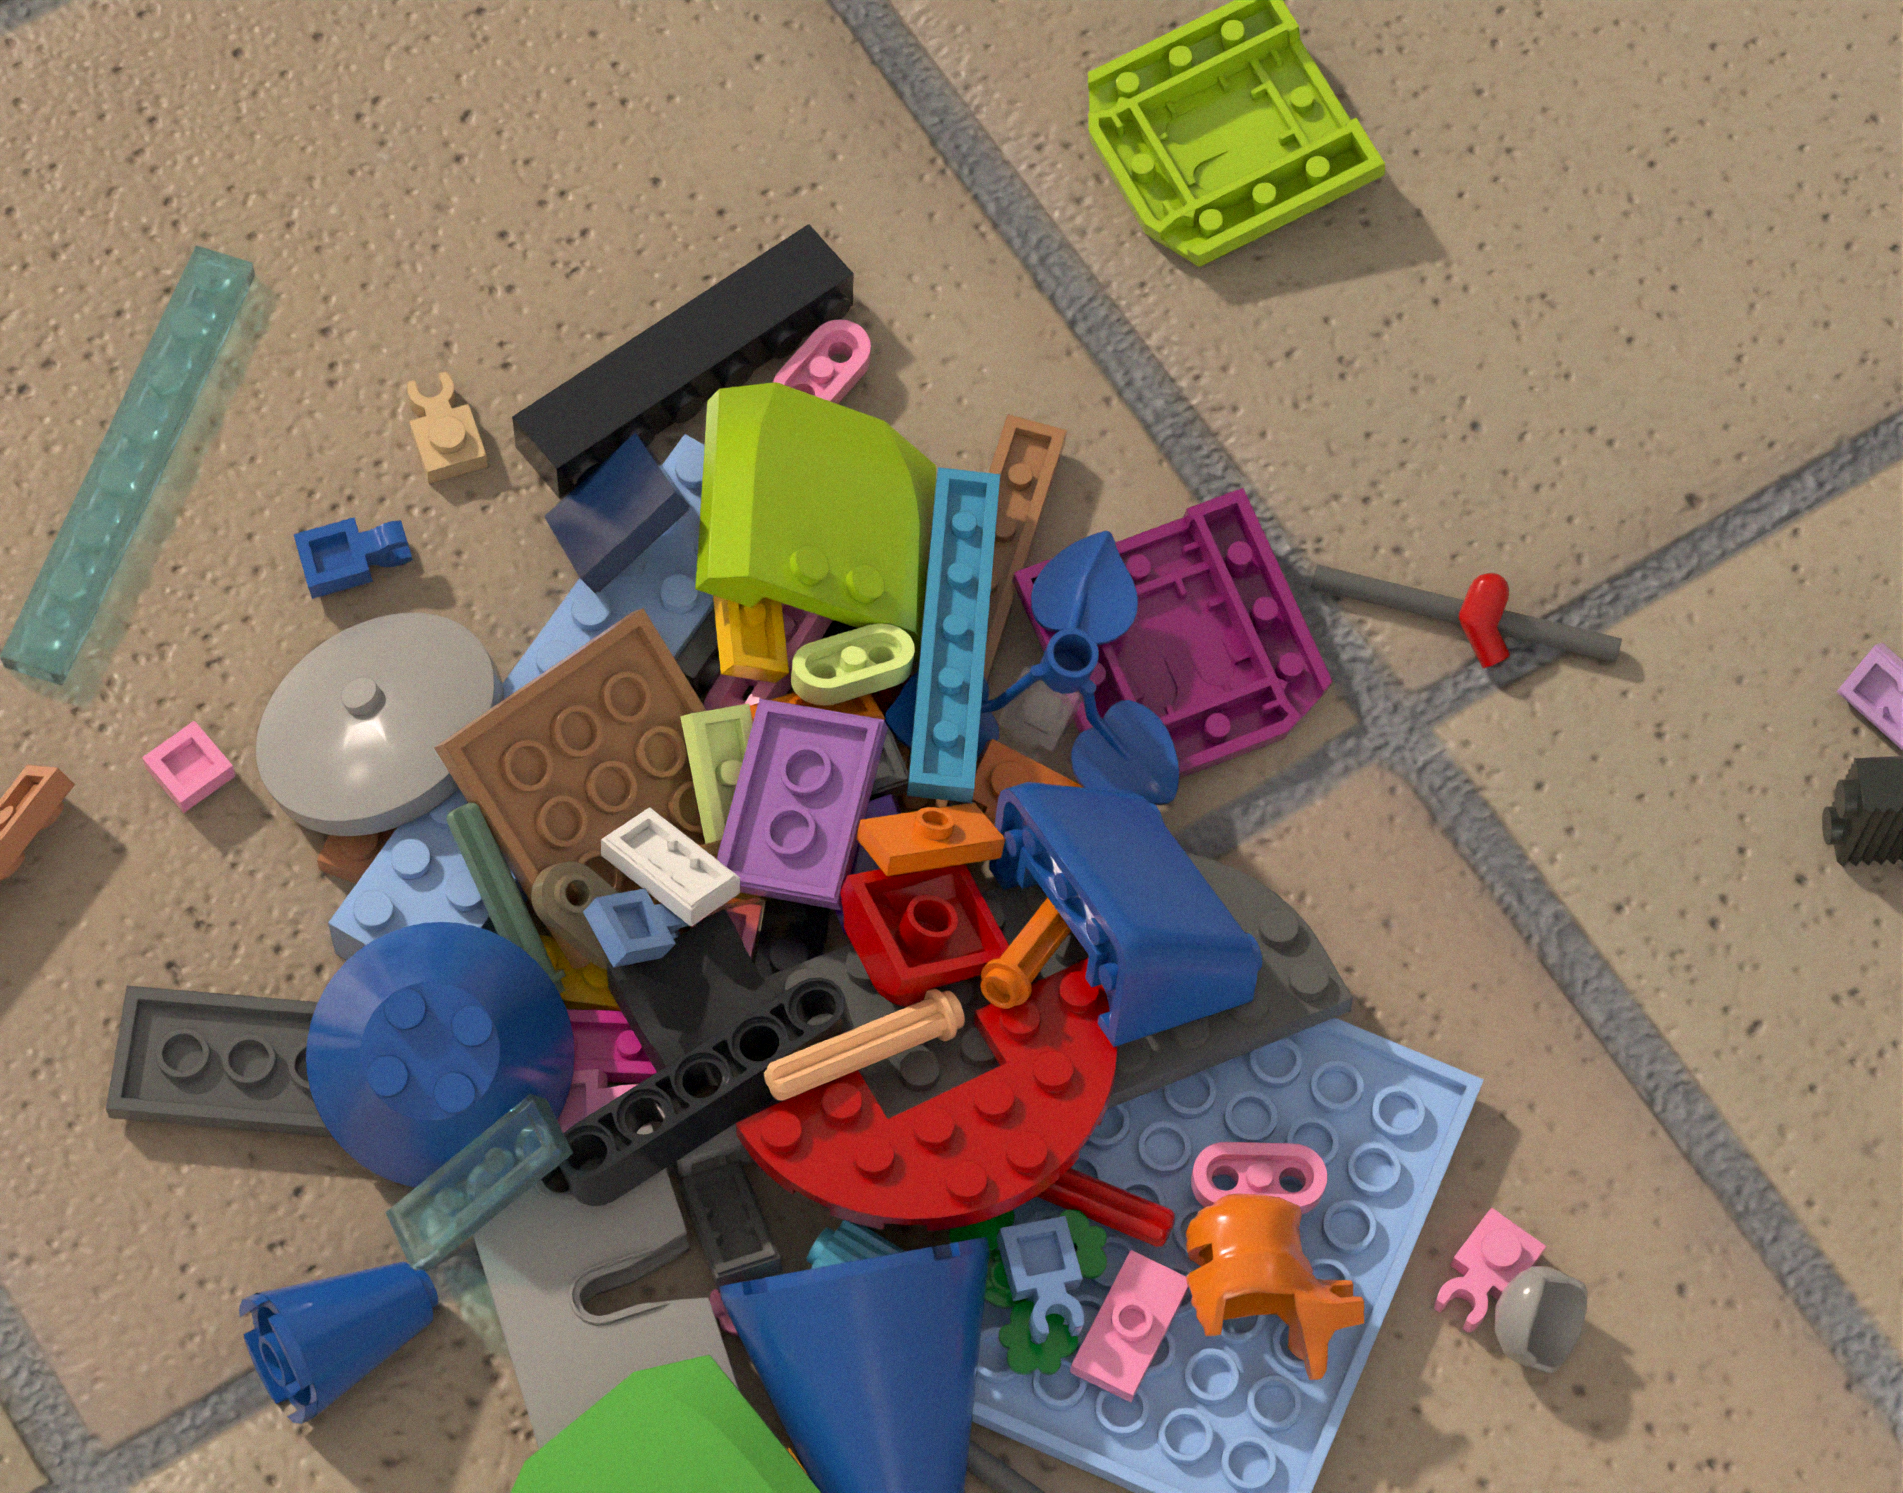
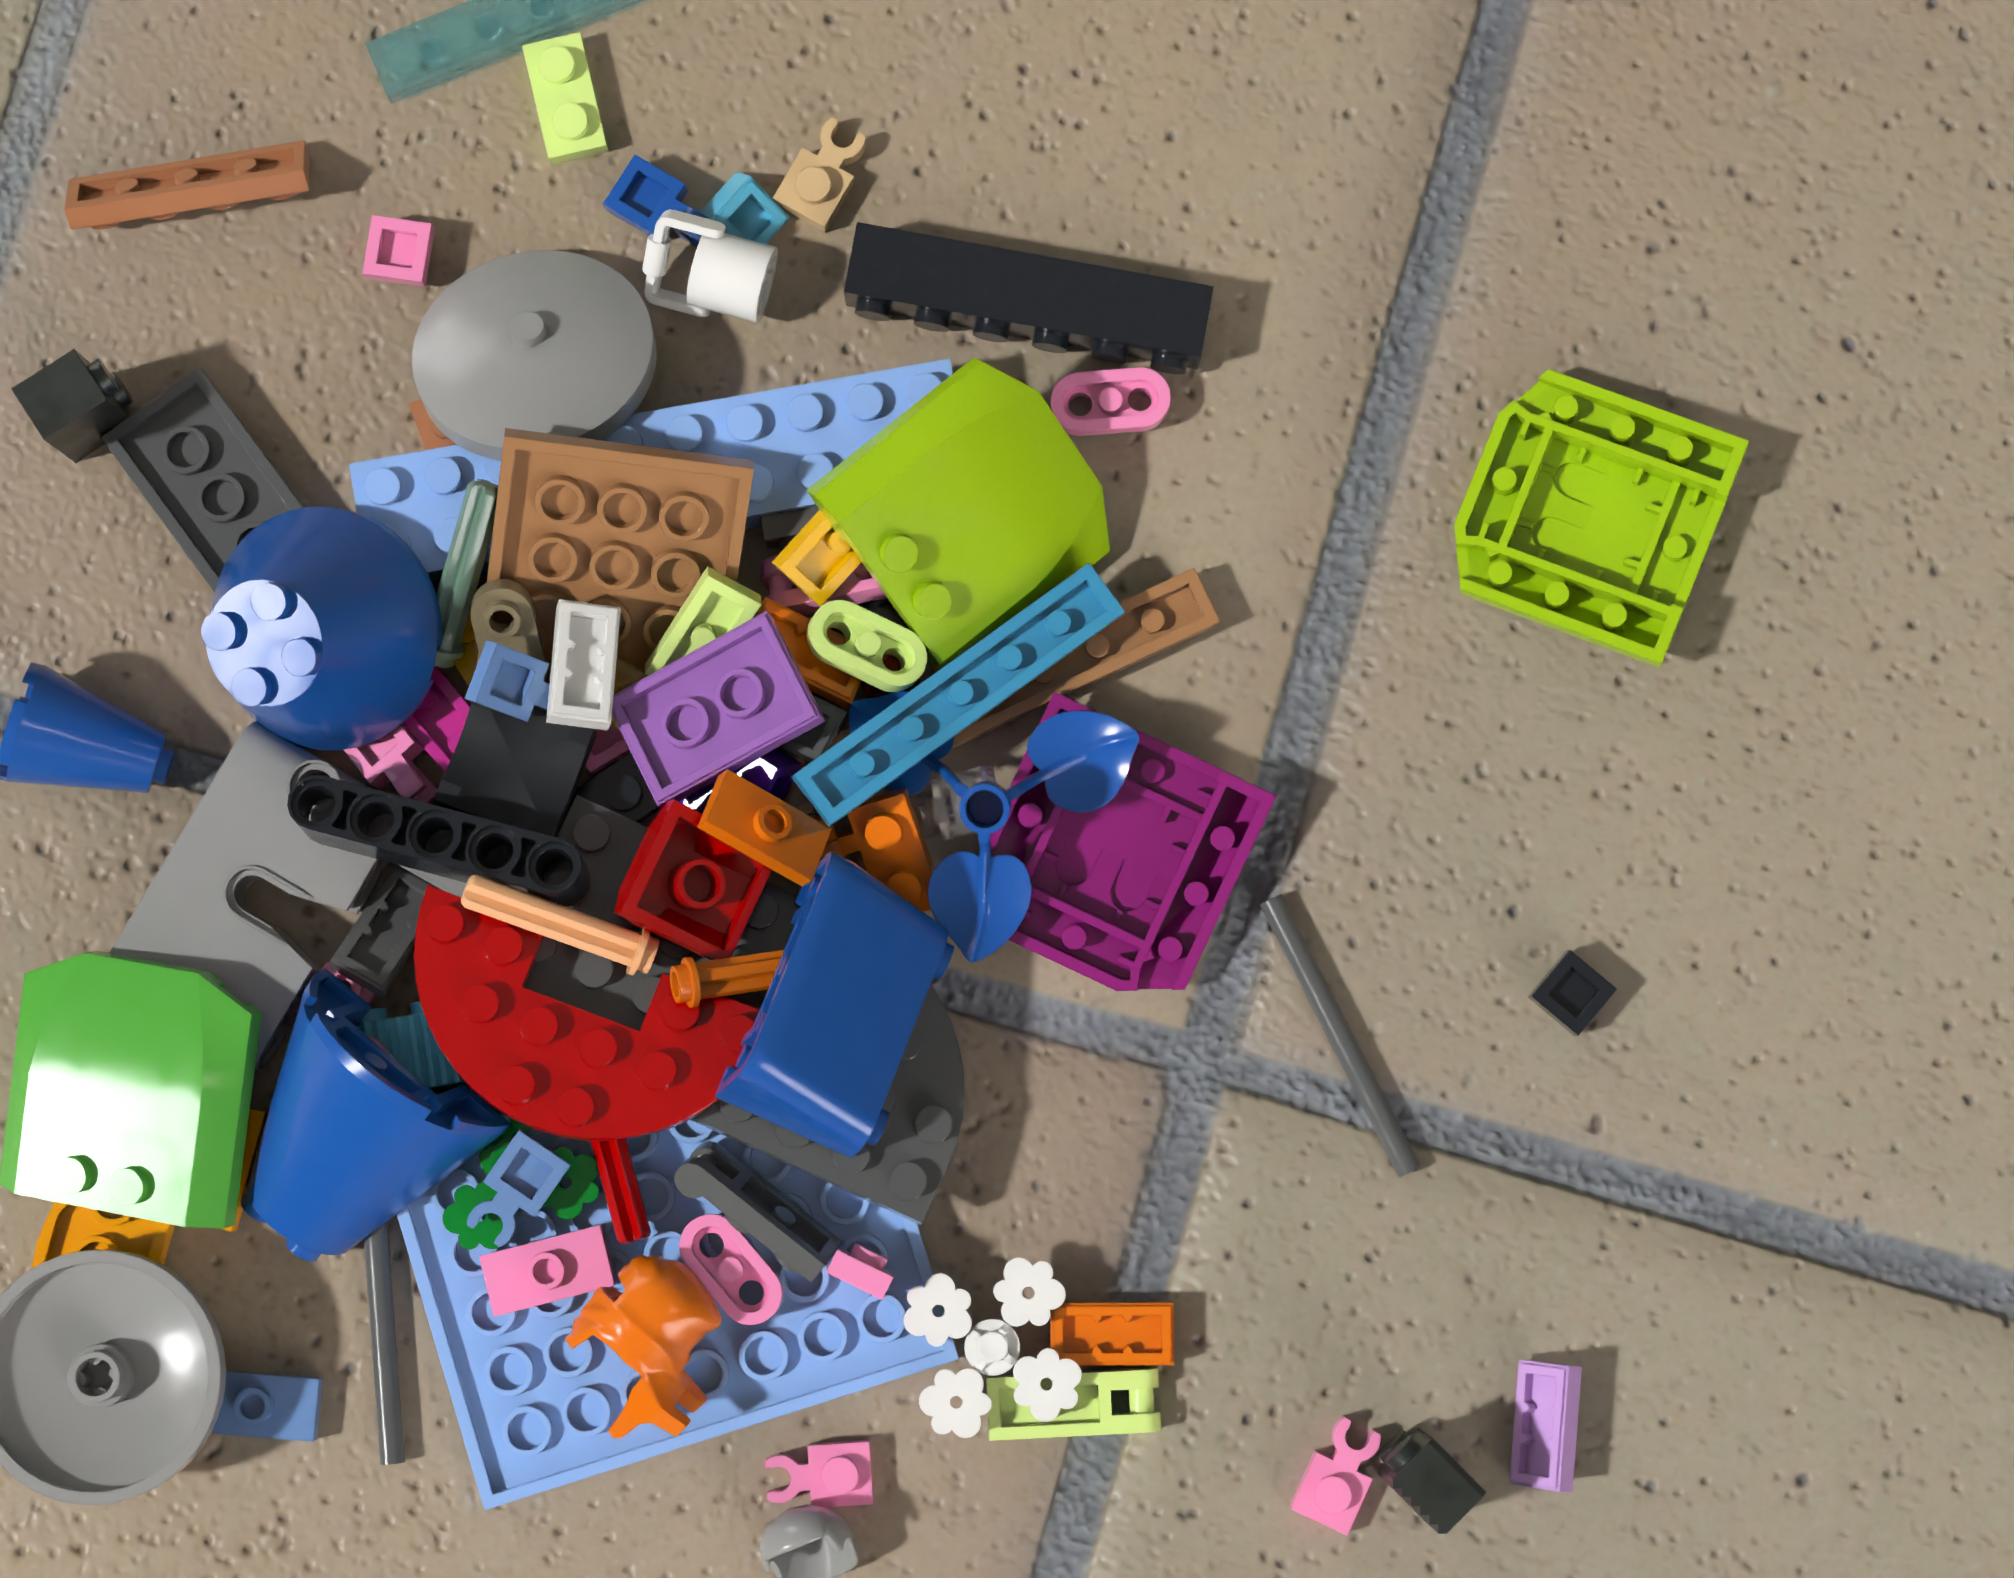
camera: 50 degrees right, 20 degrees up
(64, 1093) = (74, 403): none -> pearl dark grey brick
(194, 555) = (565, 98): none -> yellowish green plate
(421, 503) = (746, 209): none -> medium azure slope
(452, 545) = (726, 272): none -> white piece
(478, 1182) = (242, 746): clear light blue plate -> none
(616, 513) = (834, 371): dark blue tile -> none
(1225, 1116) = (757, 1209): none -> dark grey plate
(1350, 1079) = (862, 1269): none -> bright pink plate
(1481, 616) = (1339, 1052): red arm -> none
(1497, 1040) = (992, 1347): none -> white plant
(1561, 957) = (1114, 1333): none -> orange plate
(1579, 429) = (1572, 993): none -> black plate
(1591, 1034) = (1088, 1417): none -> yellowish green plate
(1822, 899) = (1332, 1486): none -> bright pink plate

